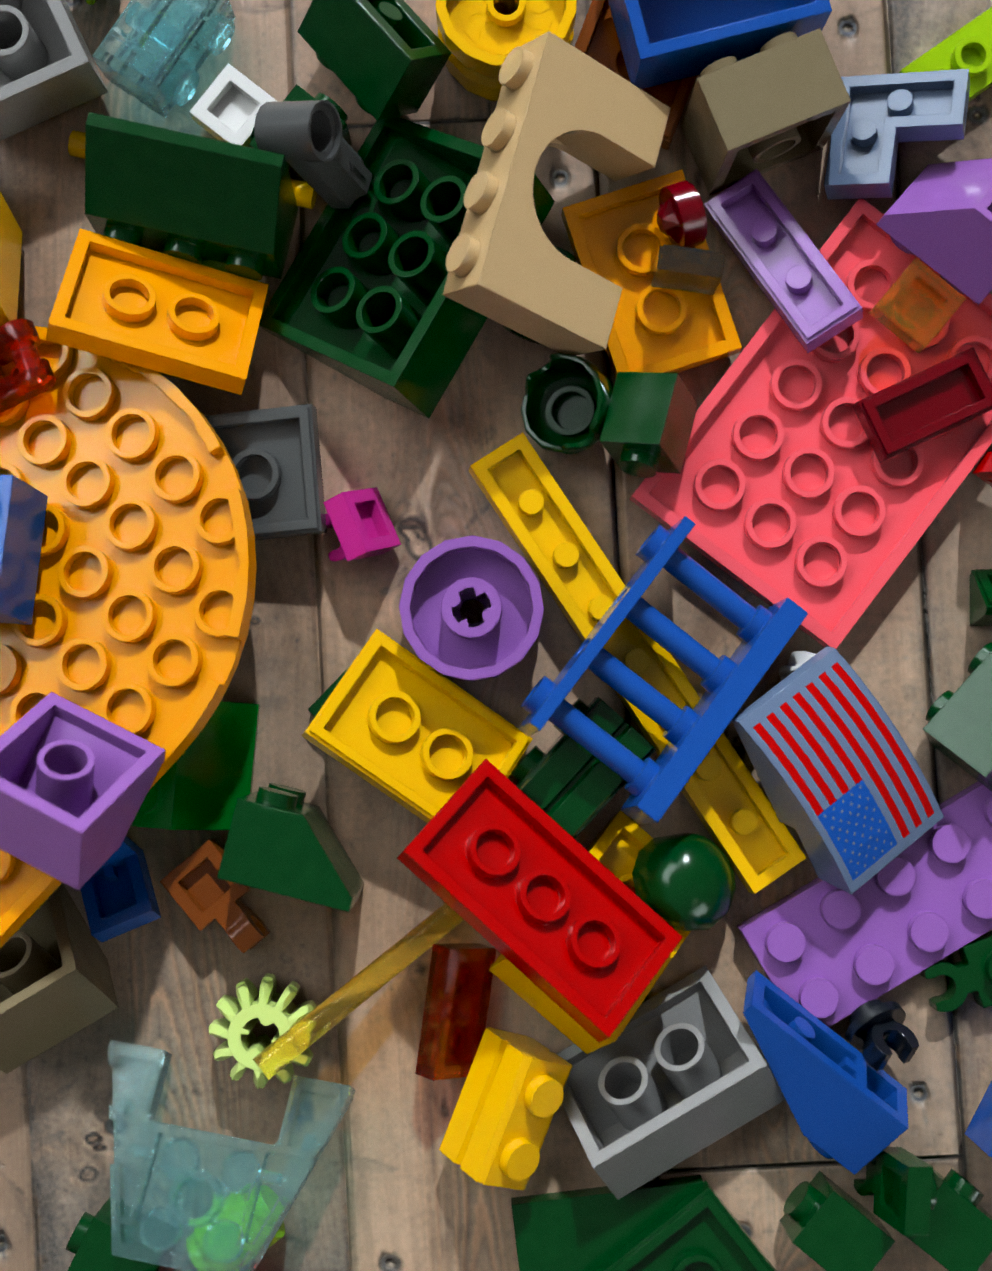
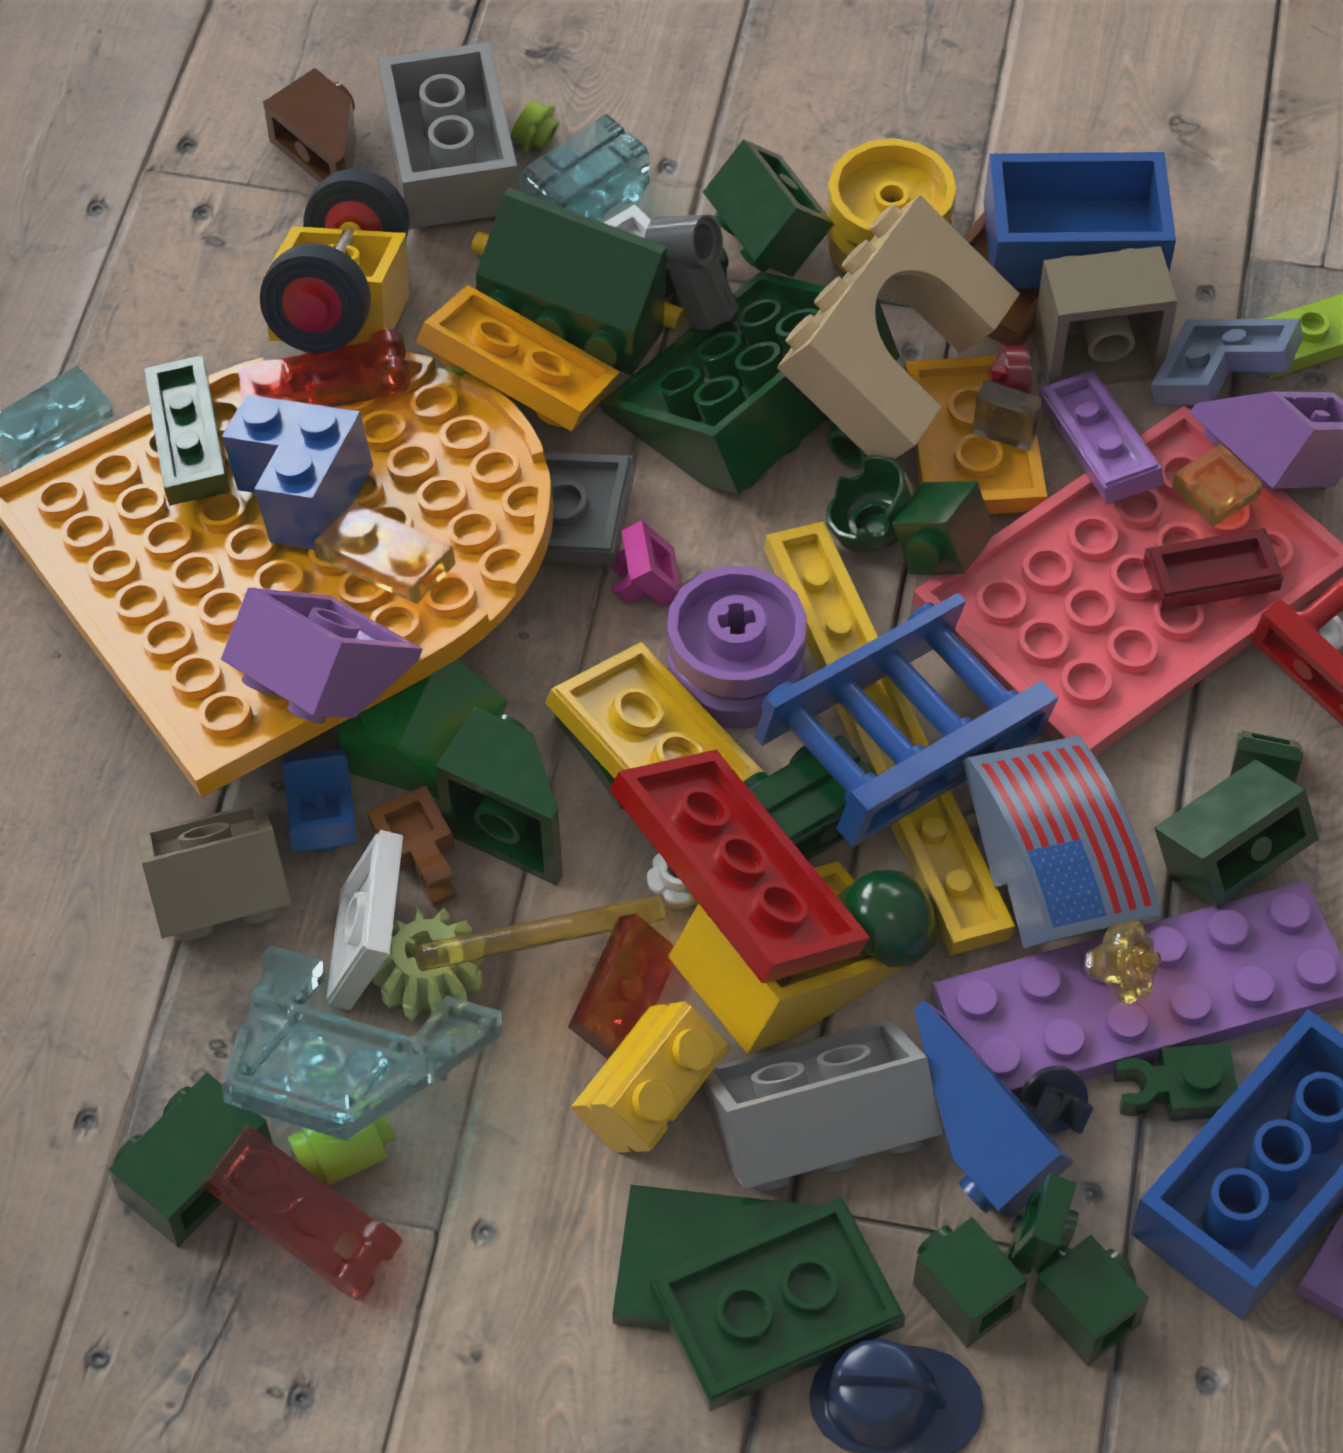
camera: 15 degrees right, 30 degrees down
(92, 626) = (385, 552): none -> clear yellow plate
(195, 1023) = (364, 920): none -> white tile
(924, 893) = (1125, 961): none -> clear yellow piece

